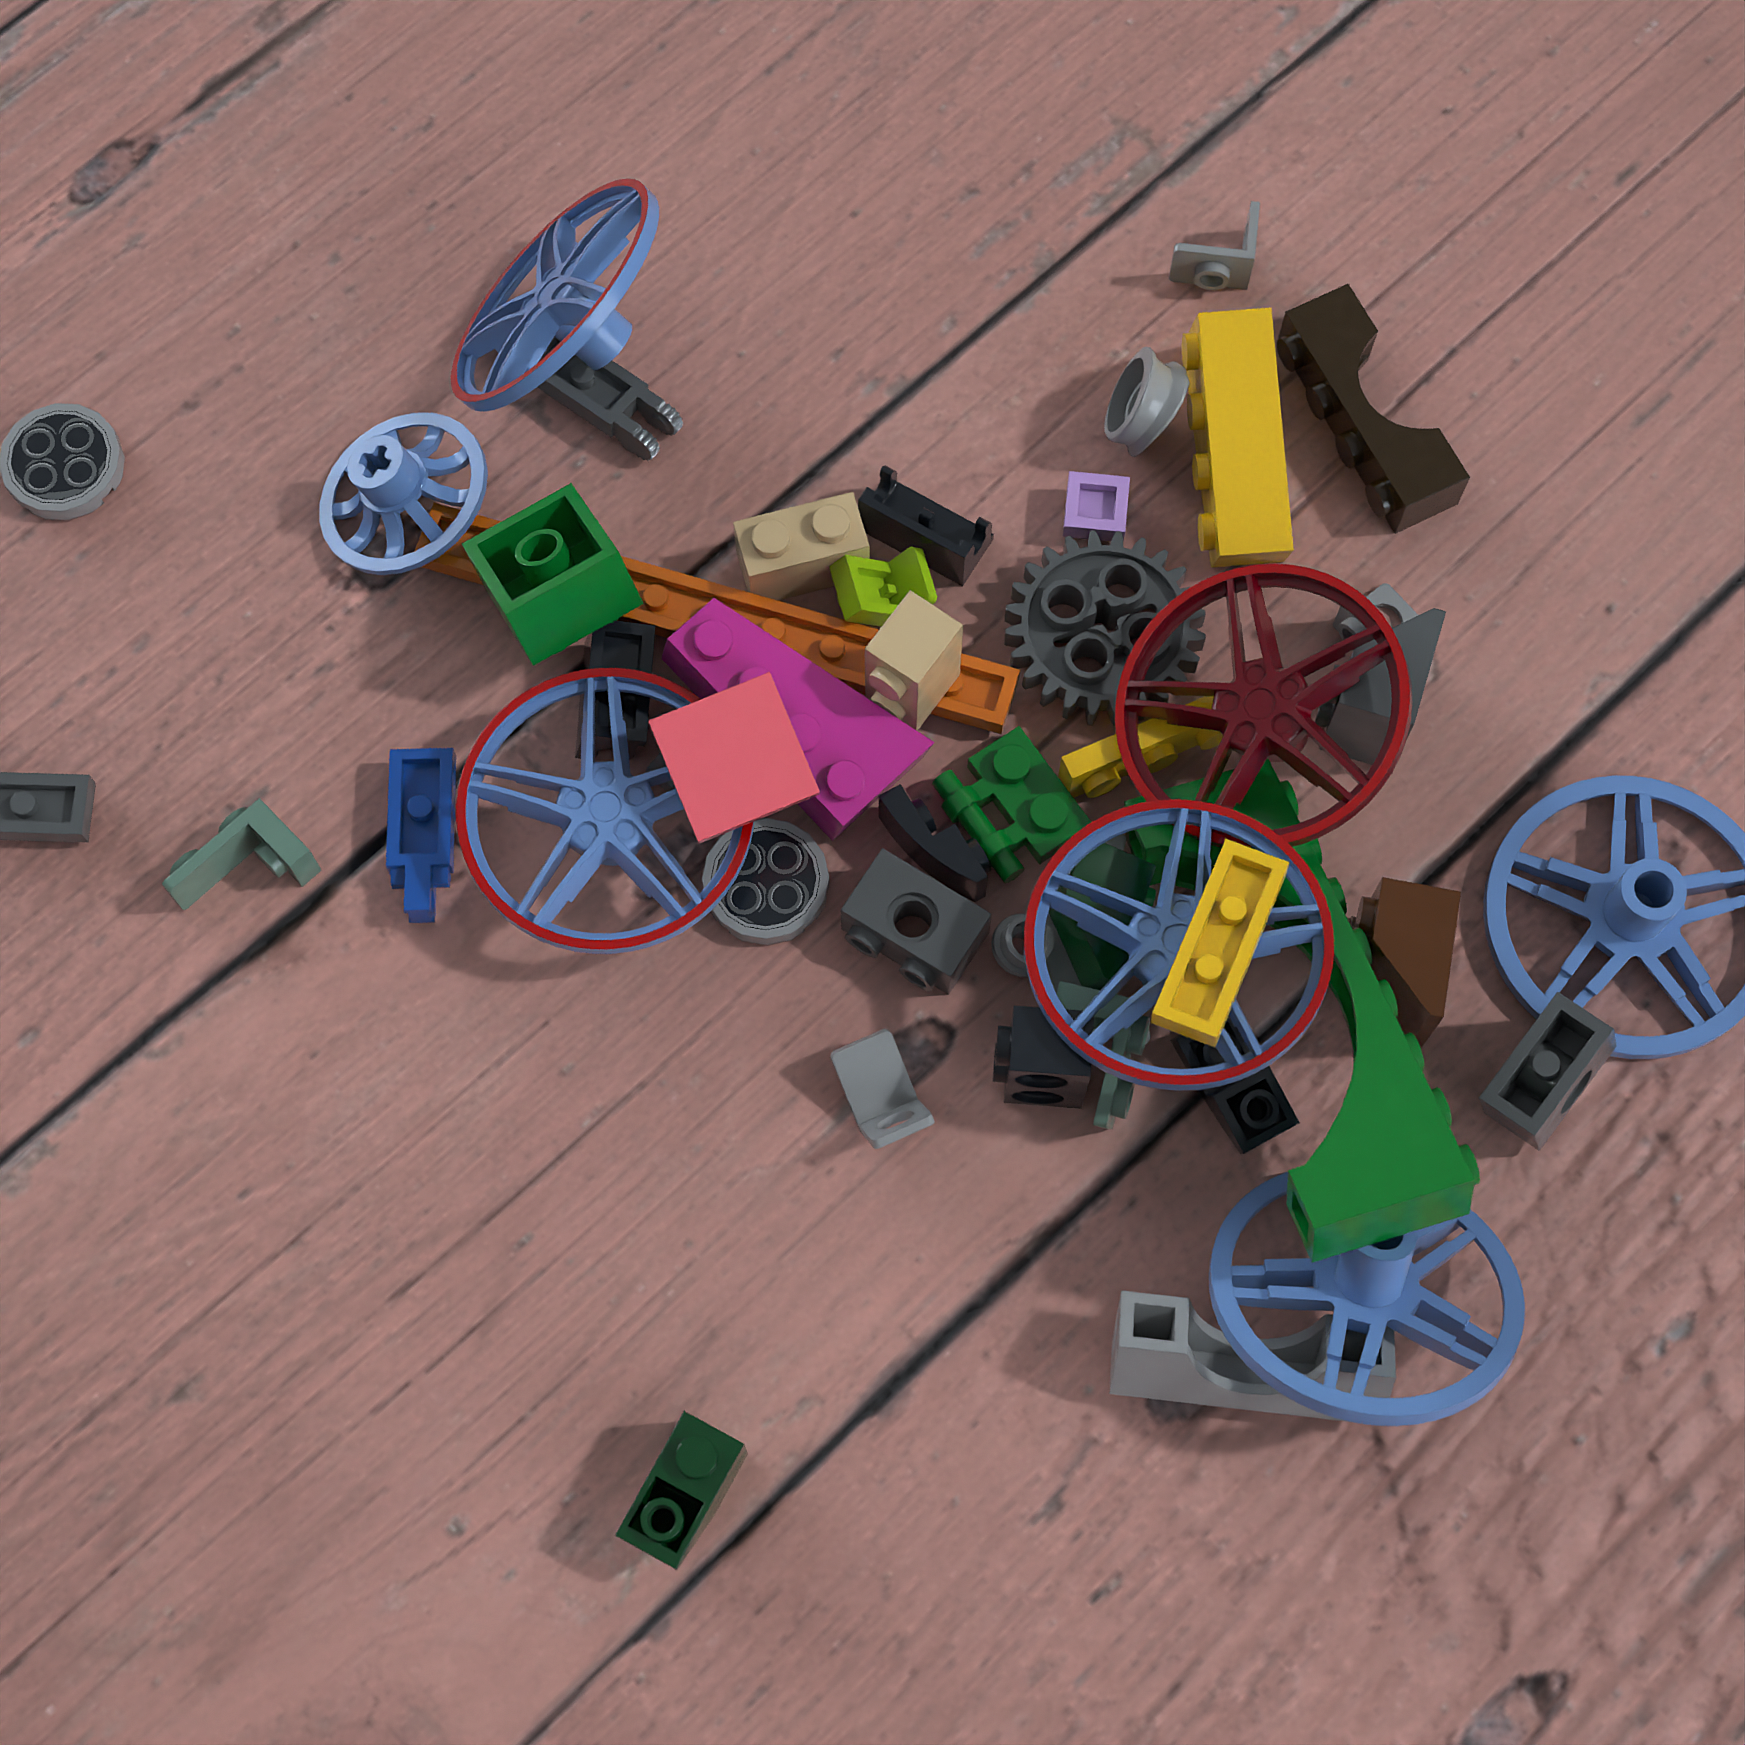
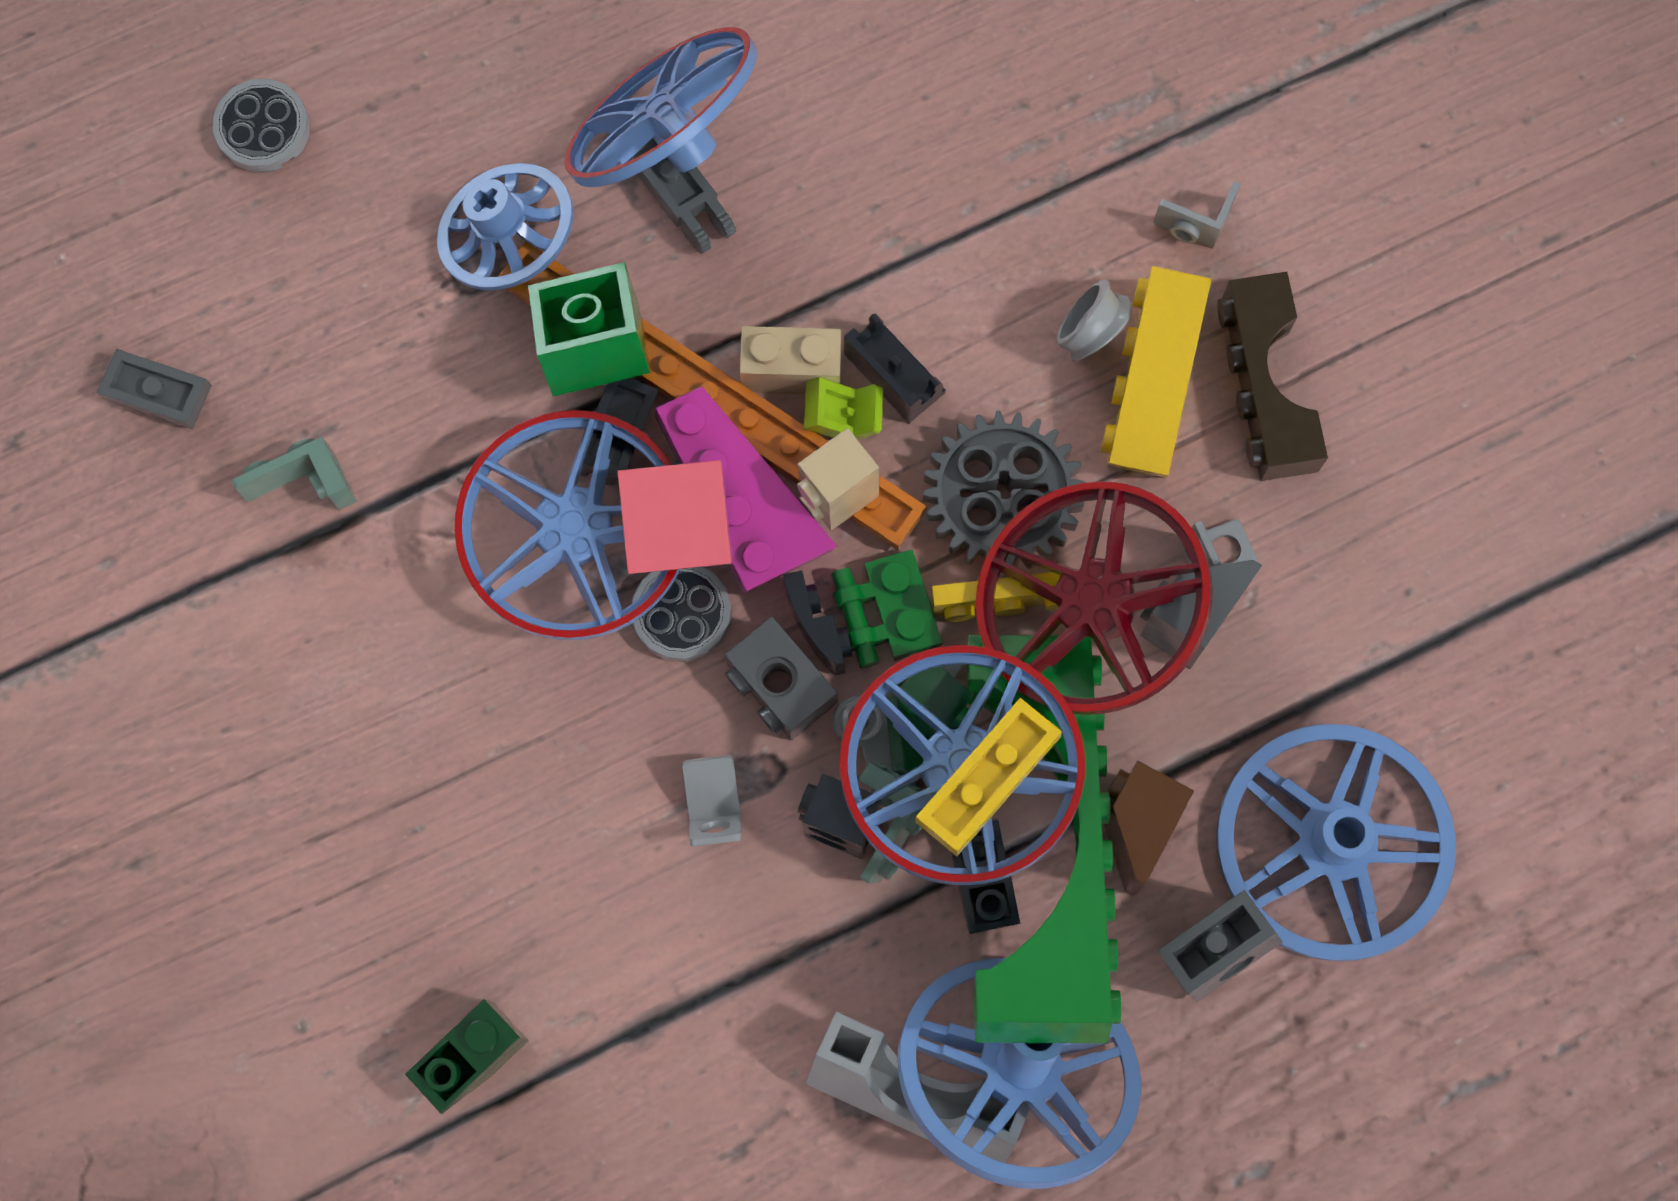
camera: 20 degrees right, 5 degrees up
(421, 826) = (435, 492): blue hinge -> none
(1096, 505) = (1030, 391): lavender plate -> none

